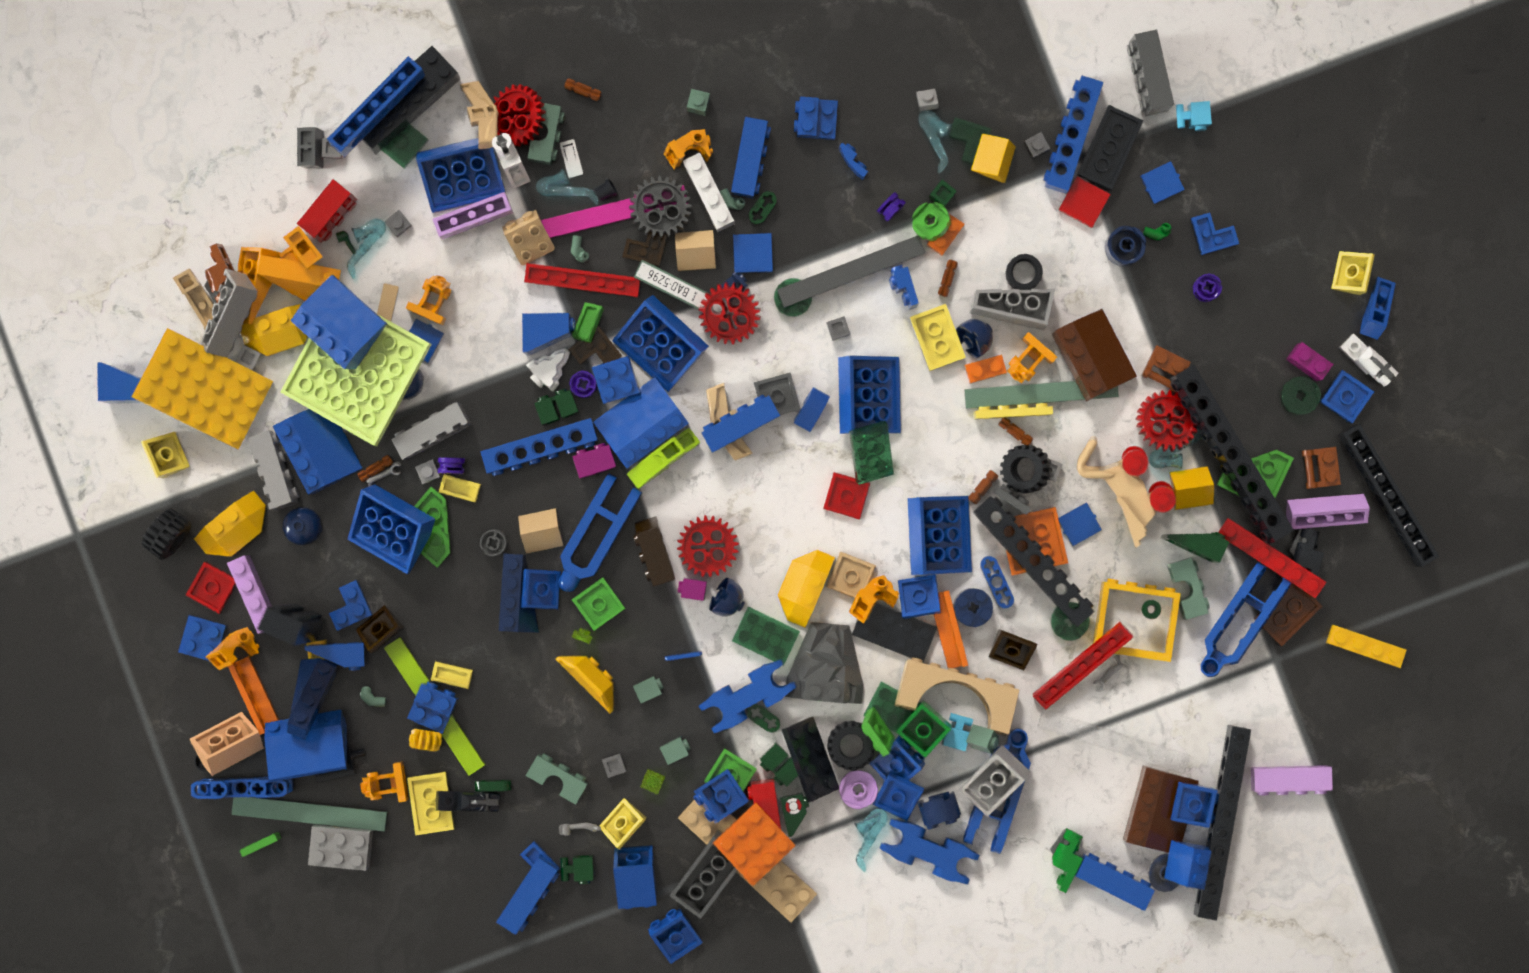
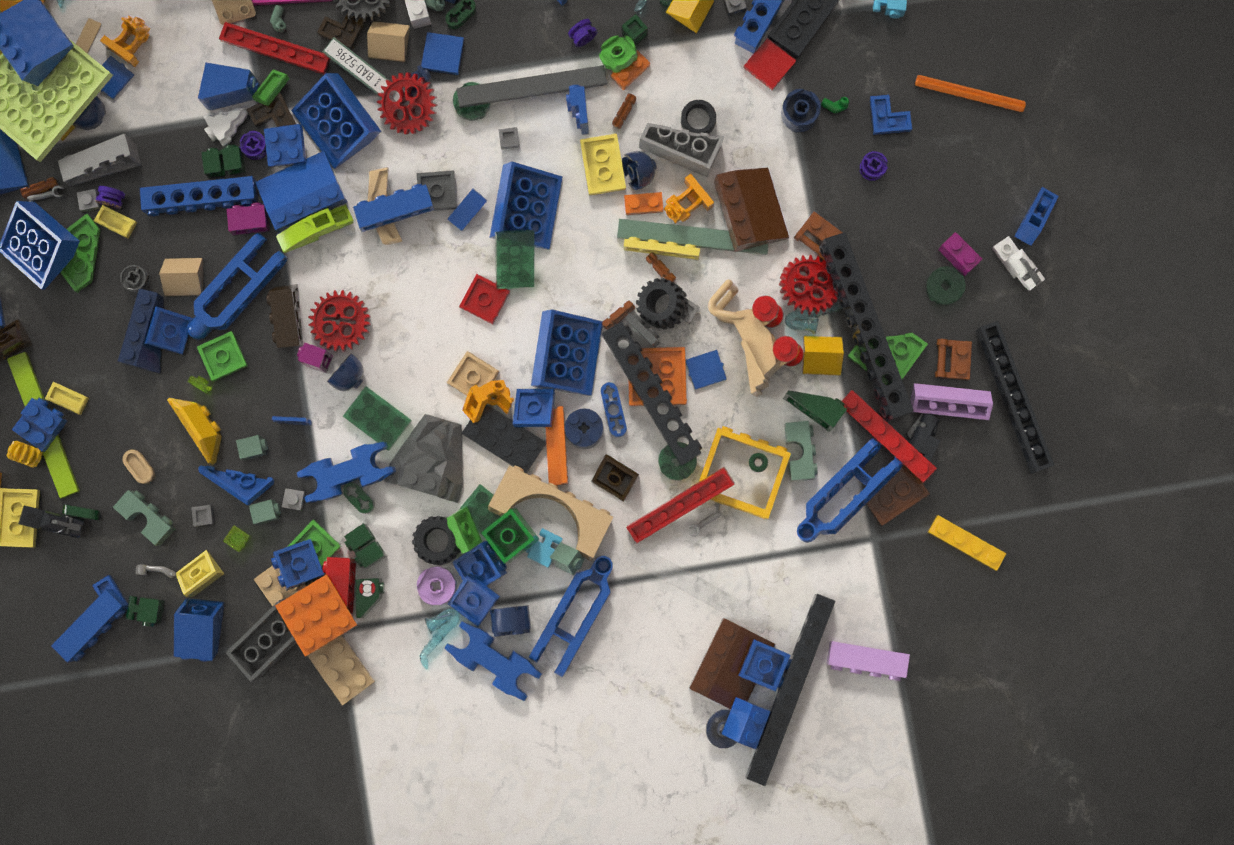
camera: 20 degrees right, 5 degrees down
(538, 729) = (138, 466): none -> tan tile
(644, 728) = (240, 485): none -> blue wing
(674, 935) = (224, 694): blue plate -> none
(699, 732) = (293, 499): none -> light grey plate
(803, 585) = (424, 377): yellow wedge -> none
(810, 759) = (394, 546): black plate -> none
(995, 780) = (570, 601): light grey slope -> none
(1065, 857) = (627, 693): green plate -> none
(1115, 882) = (671, 728): blue brick -> none
(1162, 182) = (849, 60): blue piece -> none
(1290, 194) = (970, 93): none -> orange axle
(1346, 396) = (990, 295): blue plate -> none
(1353, 272) = (1018, 177): light yellow slope -> none

